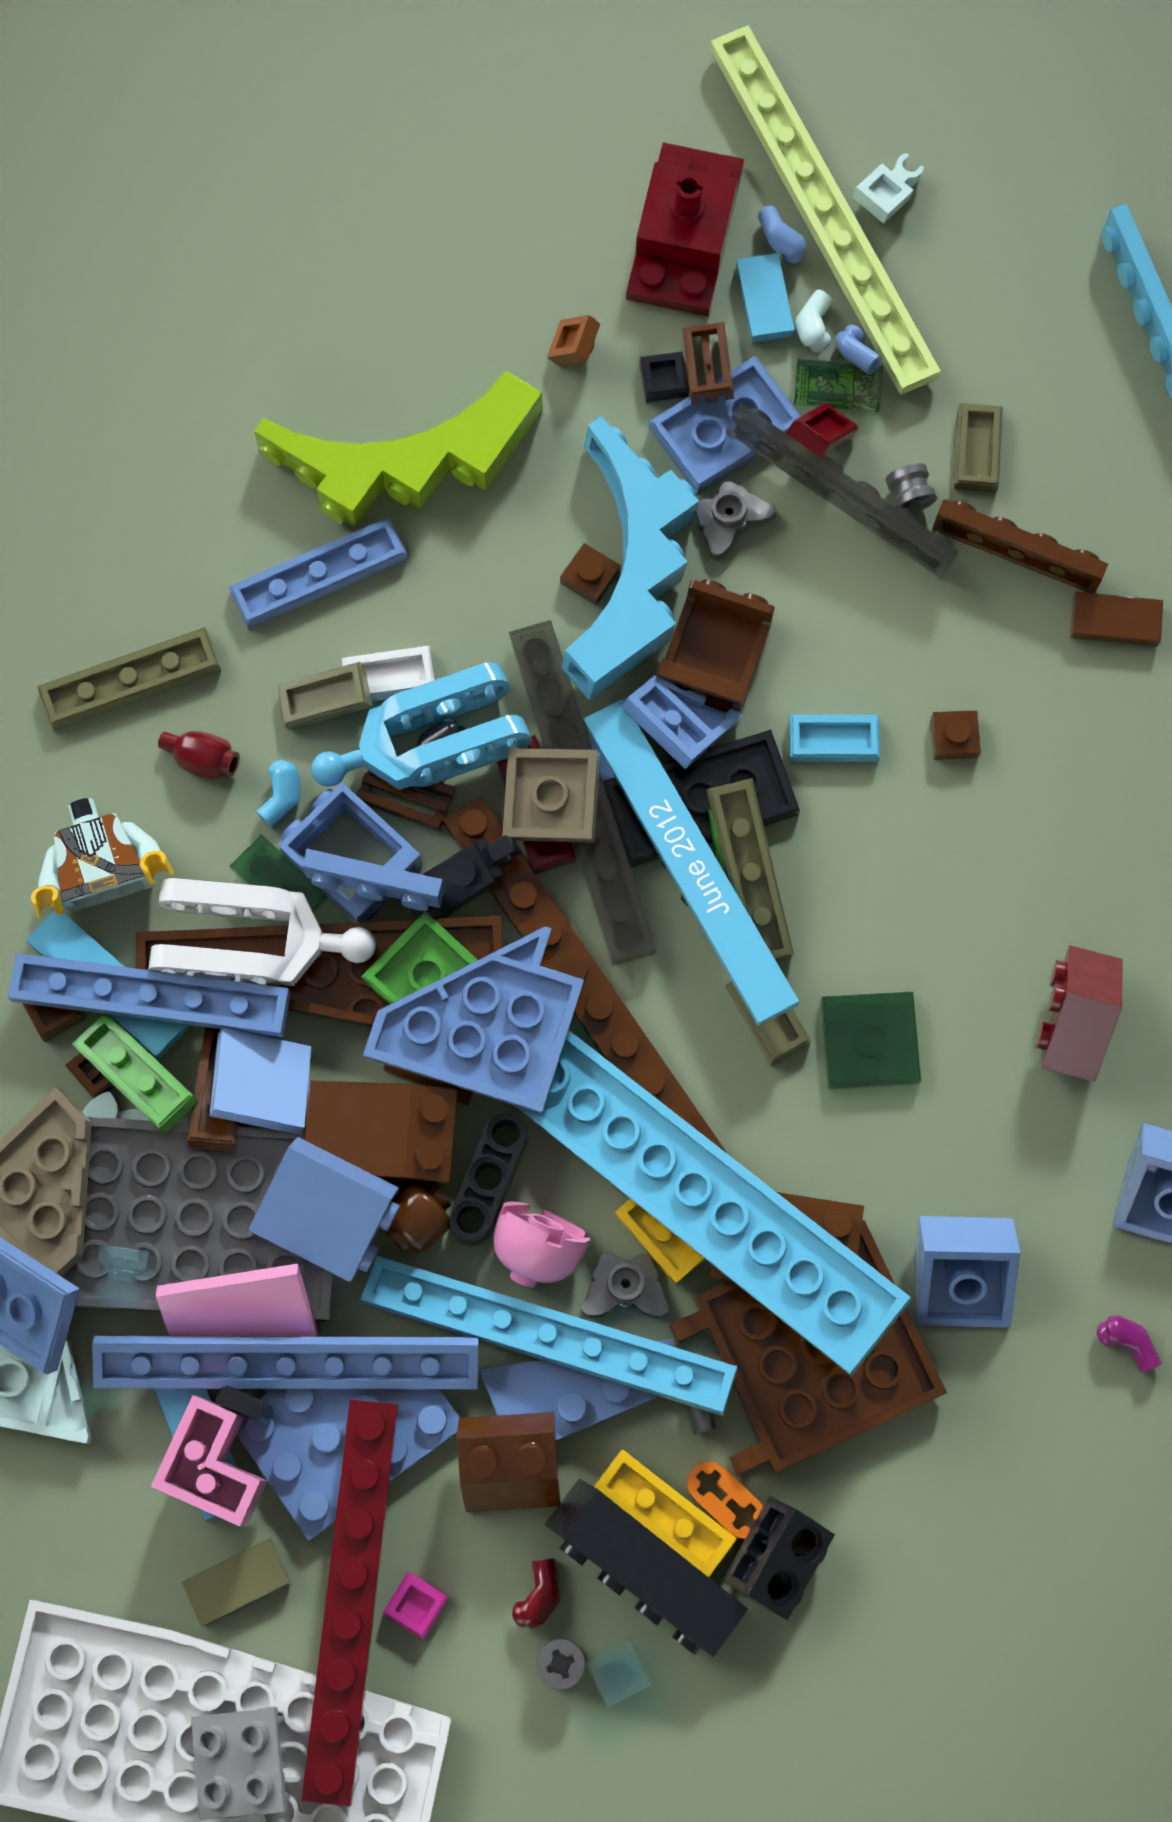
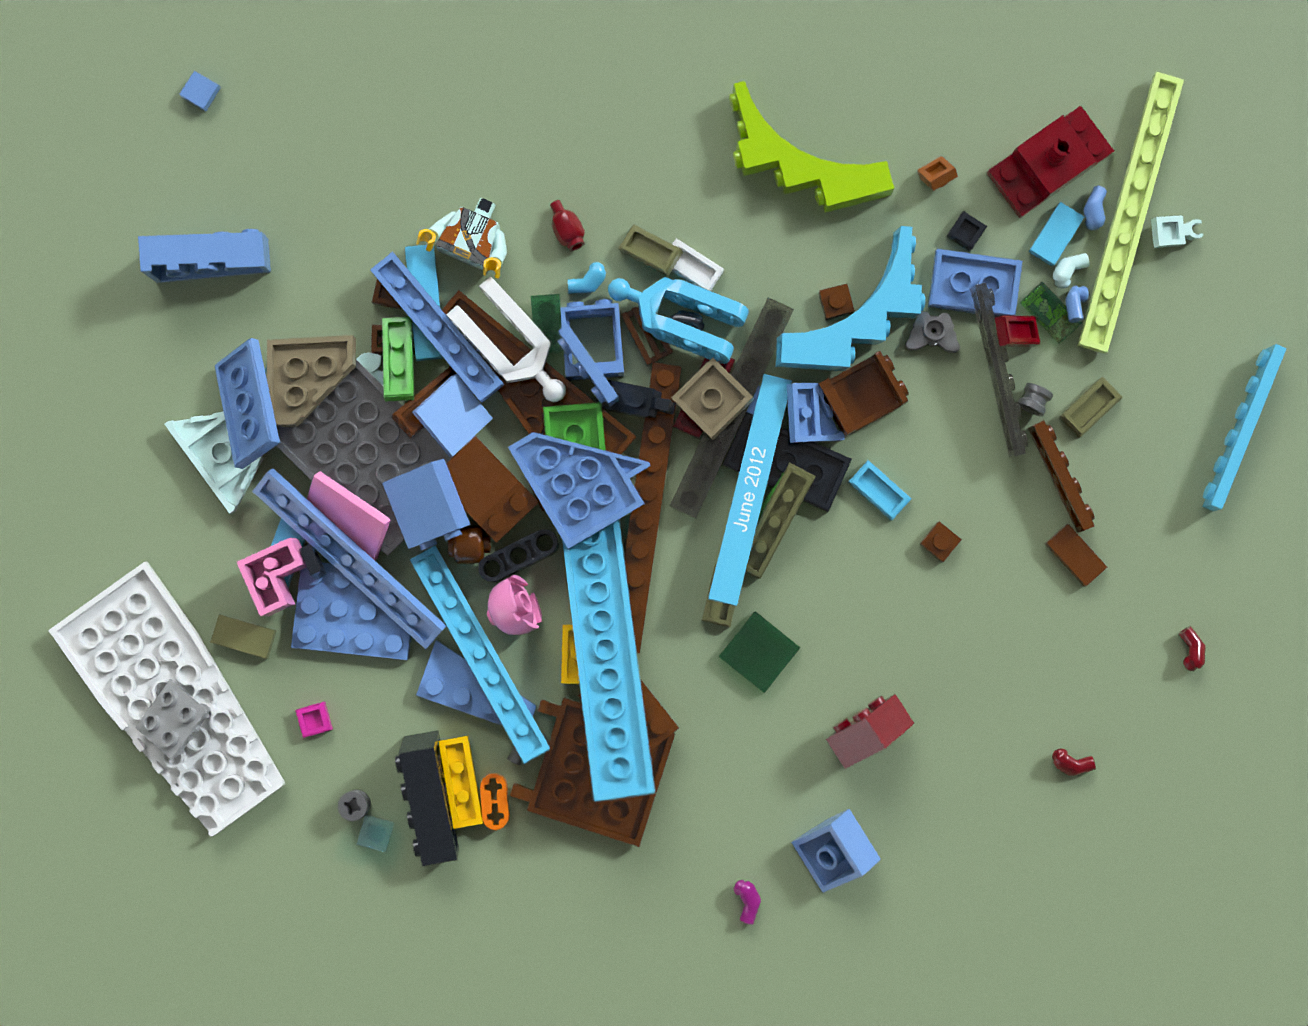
camera: 45 degrees right, 10 degrees up
(124, 1263) = (313, 447): clear light blue plate -> none
(128, 678) = (566, 157): olive tile -> none
(318, 572) = (704, 183): medium blue tile -> none
(350, 1604) = (284, 692): dark red plate -> none
(508, 1462) = (410, 694): reddish brown slope -> none
(542, 1599) = (373, 769): dark red arm -> none
(607, 1292) = (545, 672): flat silver animal -> none
(710, 390) = (982, 261): reddish brown tile -> none
(778, 1557) = (492, 849): black brick -> none
(966, 1271) = (701, 799): medium blue slope -> none

